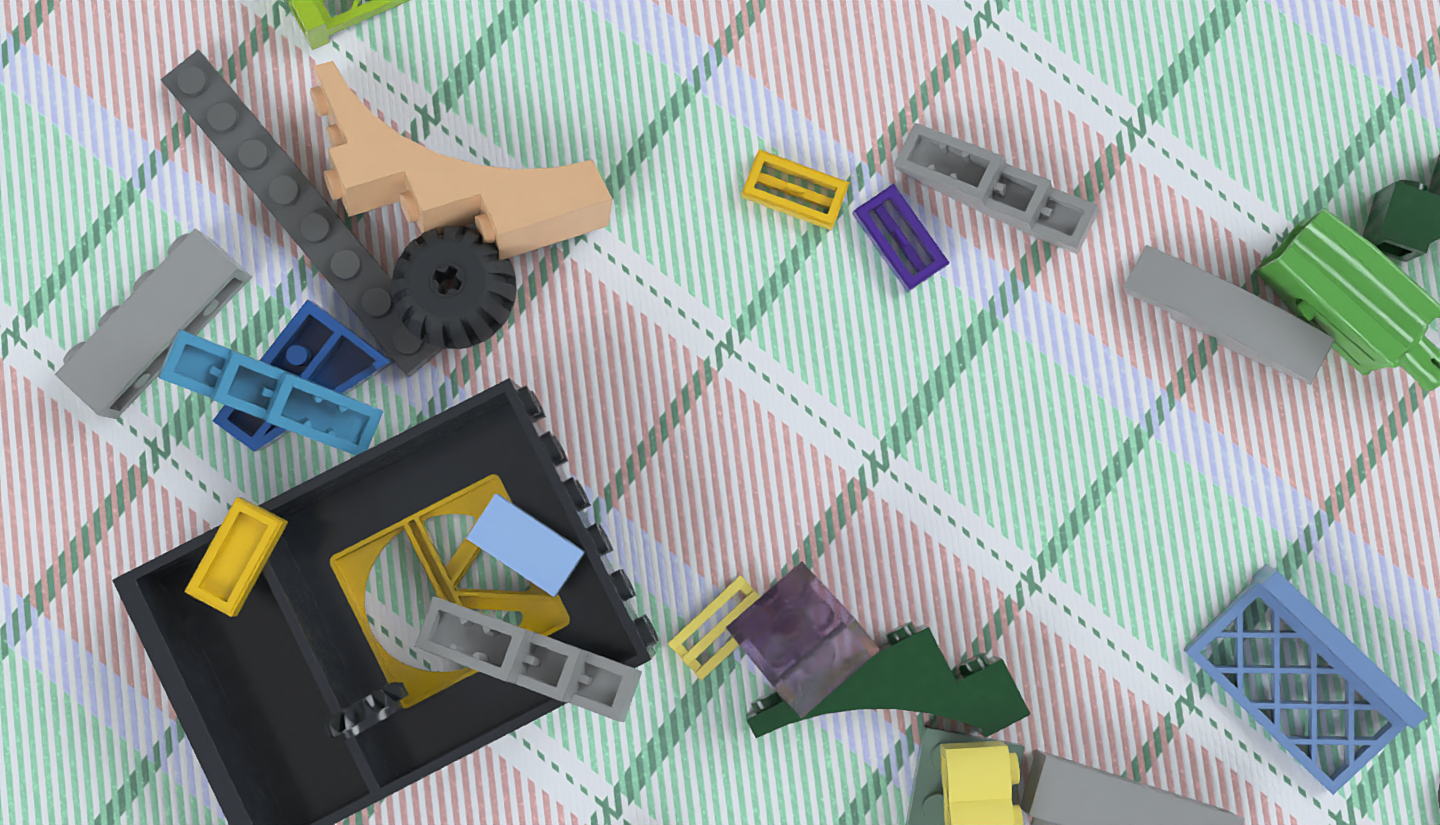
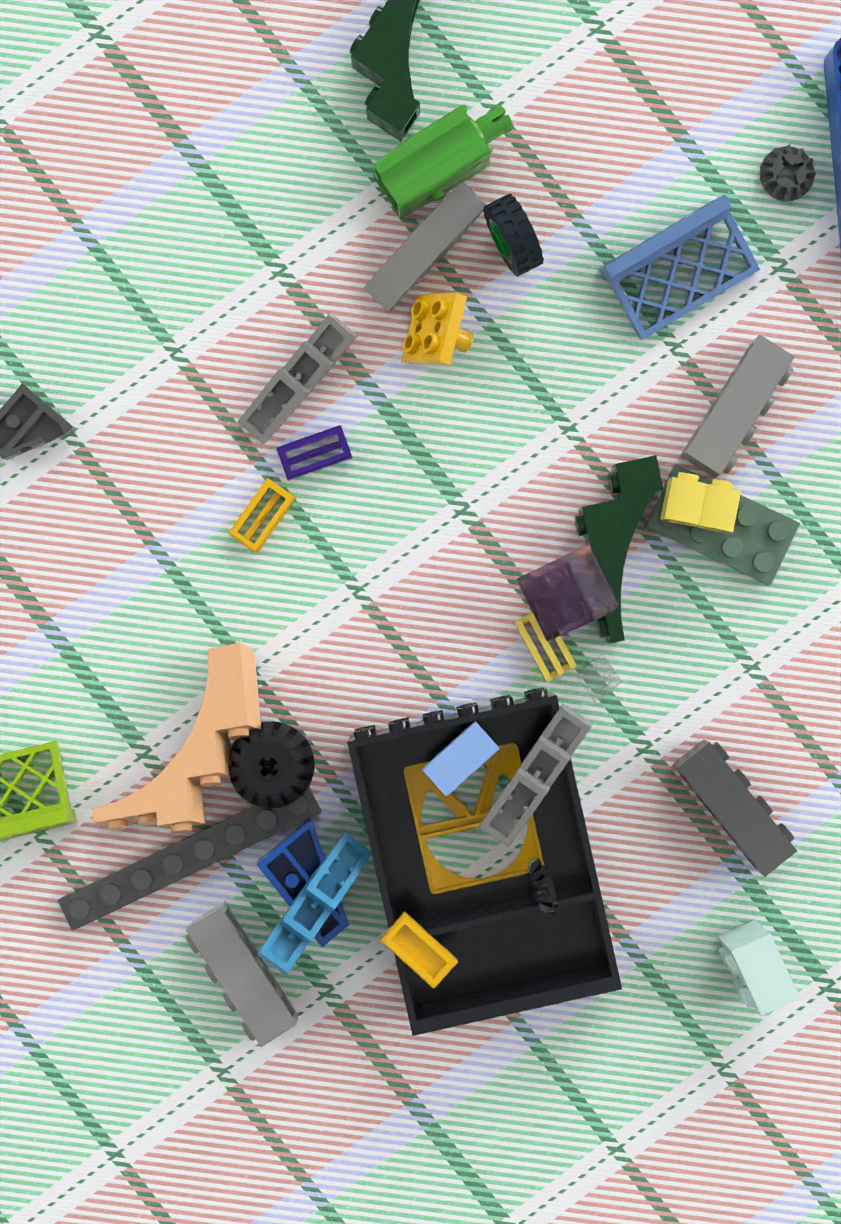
camera: 75 degrees left, 5 degrees up
(692, 715) = (598, 677): none -> clear tile
(1118, 357) = (436, 330): none -> yellow plate
(1283, 429) = (513, 234): none -> black wheel

